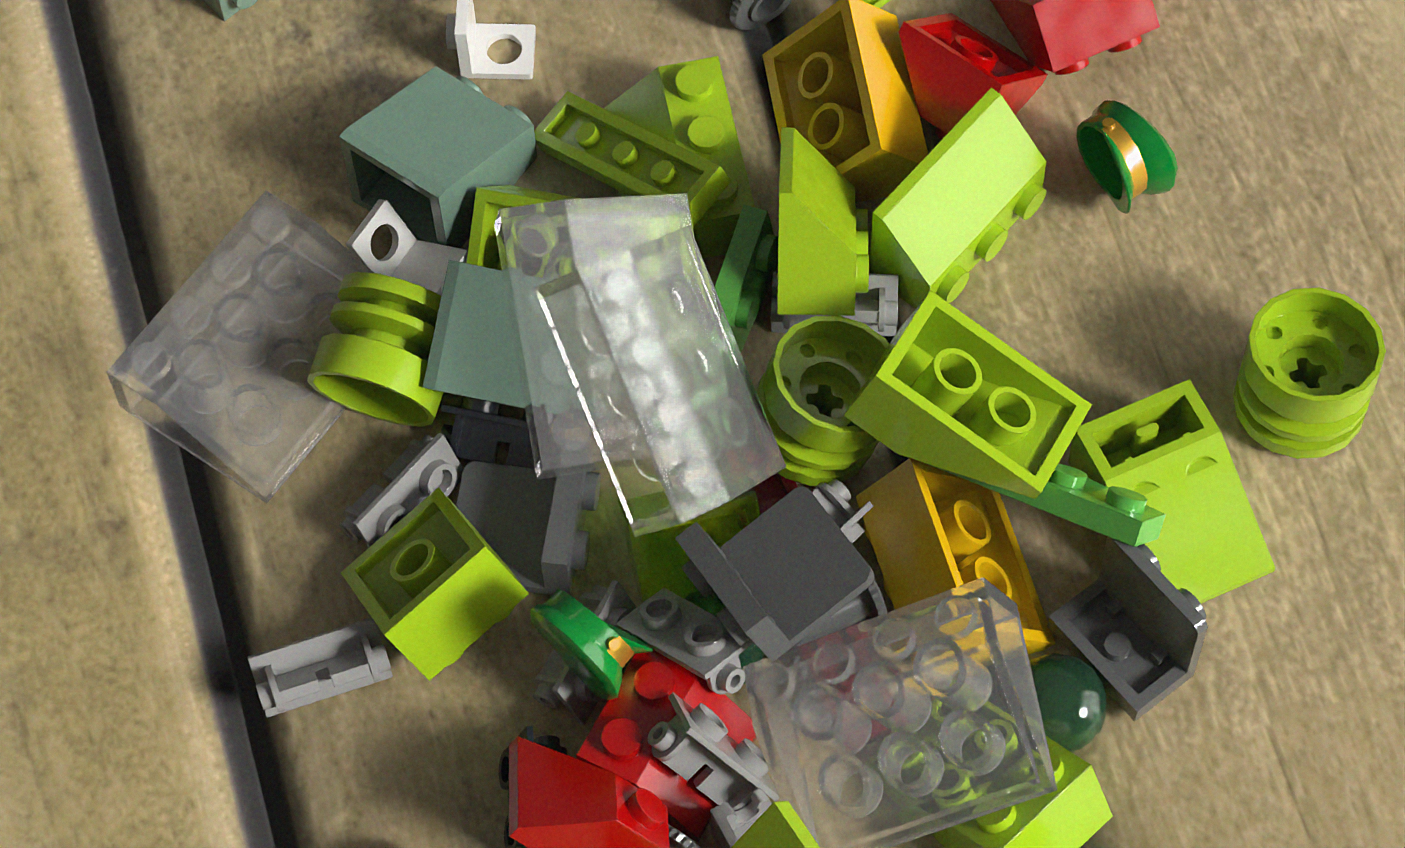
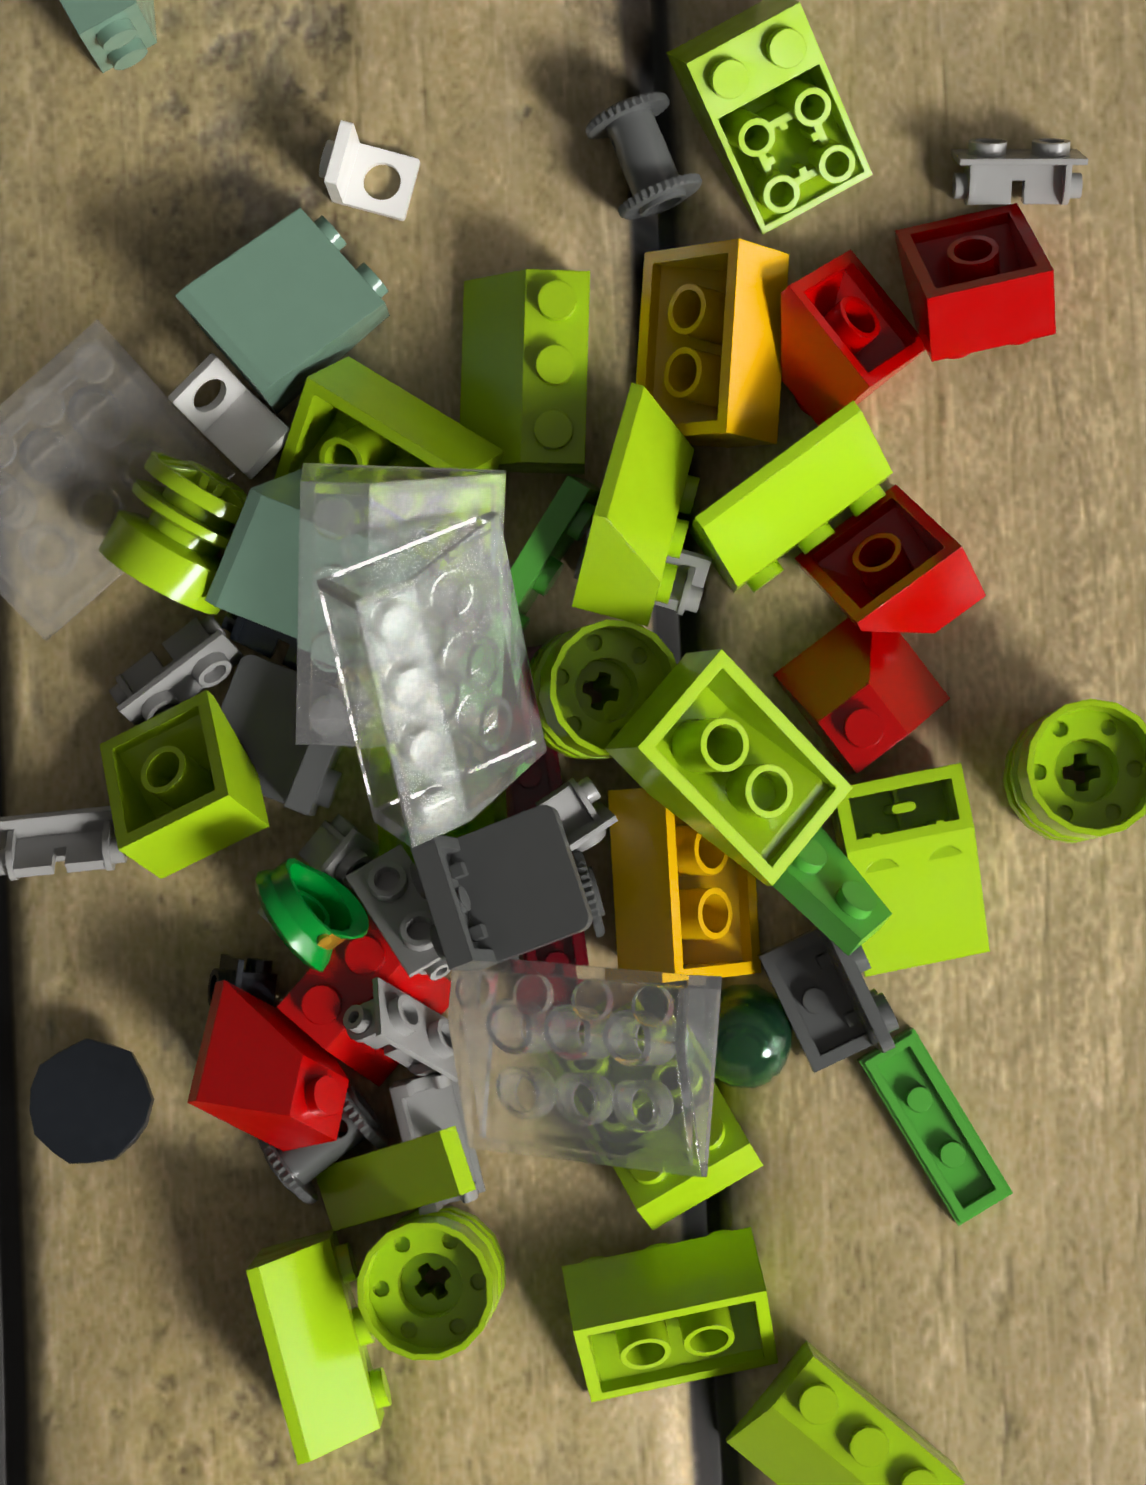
camera: 10 degrees right, 25 degrees up
(628, 155) = (472, 371): lime plate -> none
(1079, 244) = (894, 569): none -> red slope
(1087, 354) = (861, 692): none -> red slope
(1125, 154) = (975, 479): green piece -> none
(1275, 747) = (935, 1127): none -> bright green tile

